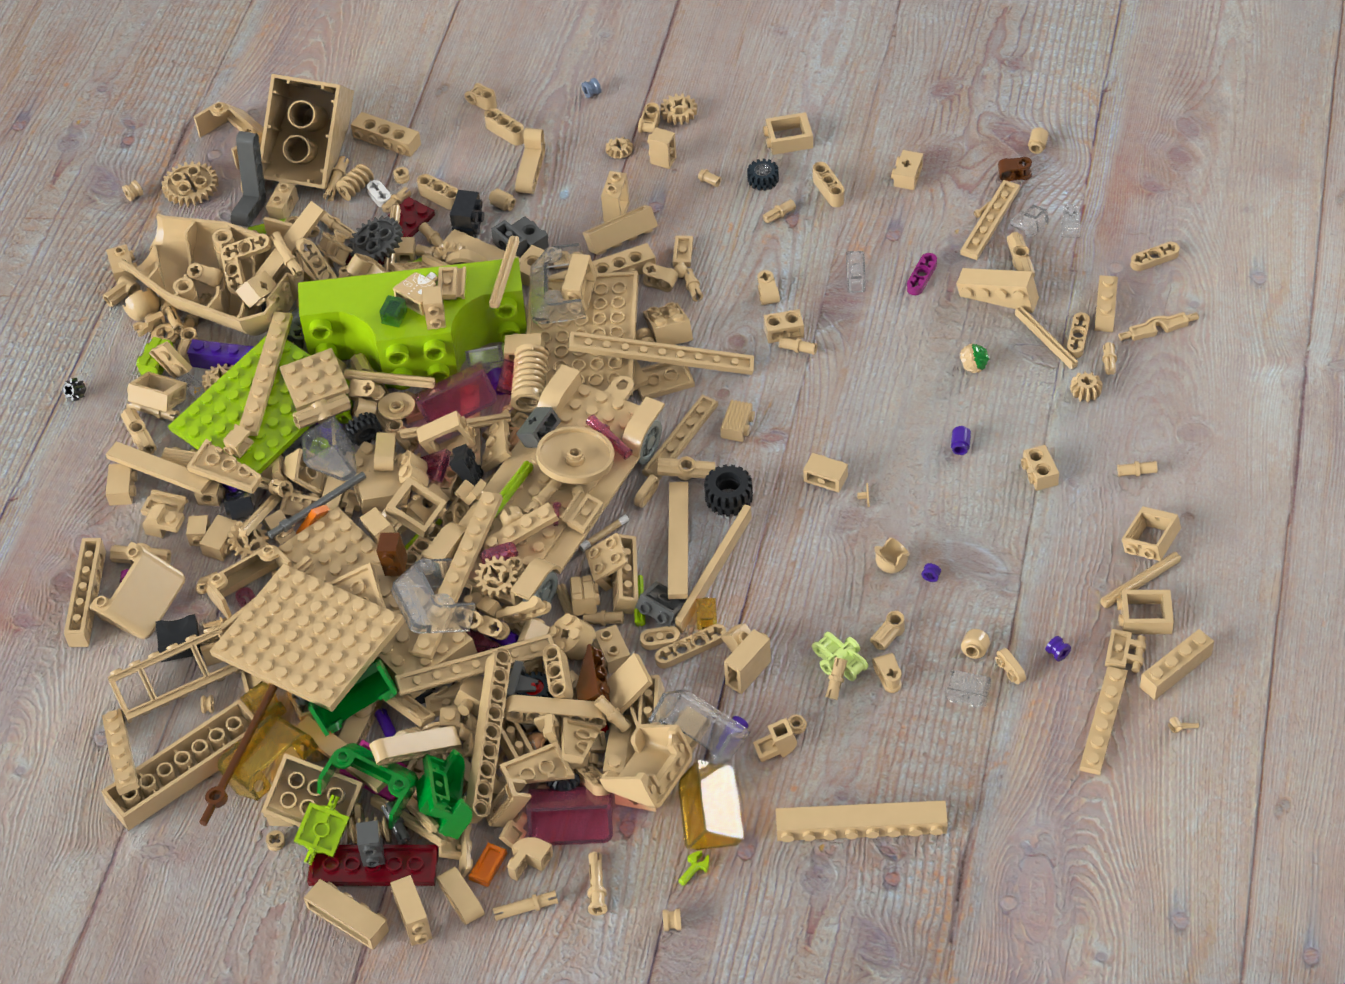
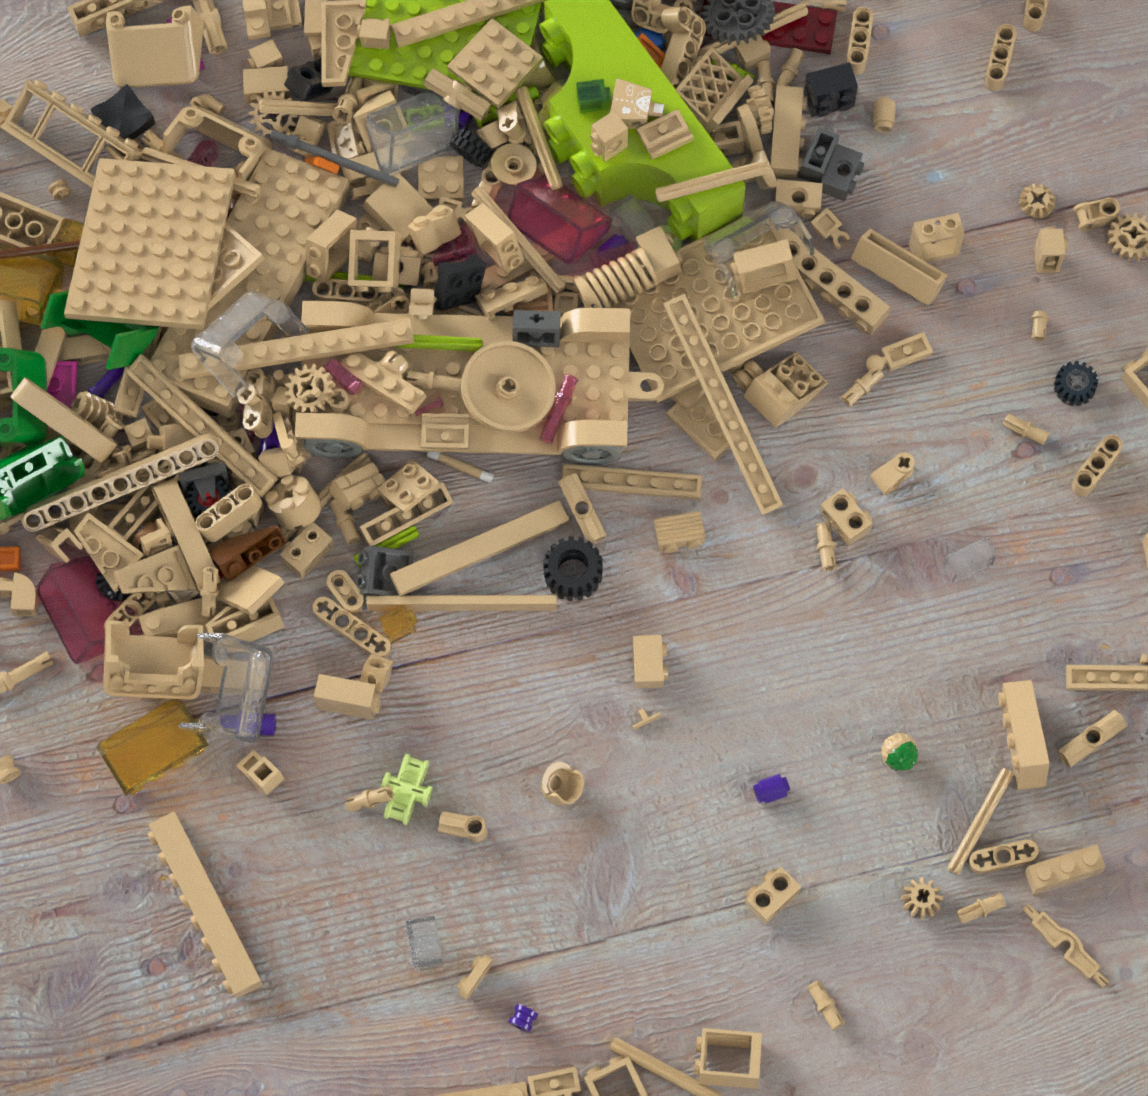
camera: 60 degrees right, 20 degrees up
(385, 451) = (445, 186): tan beam -> none
(392, 554) = (285, 270): reddish brown brick -> none
(514, 830) = (37, 564): tan plate -> none
(531, 161) = (955, 117): tan beam -> none
(591, 87) = (1115, 121): sand blue wheel -> none
(646, 491) = (533, 483): tan tile -> none
(660, 277) = (851, 348): tan piece -> none
(692, 858) = (80, 762): lime bar -> none
(797, 720) = (294, 778): tan plate -> none
(888, 672) = (412, 846): tan piece -> none
(922, 280) = (1017, 628): magenta beam -> none
(931, 572) = (565, 837): dark purple bush -> none
(975, 643) = (487, 926): tan head -> none

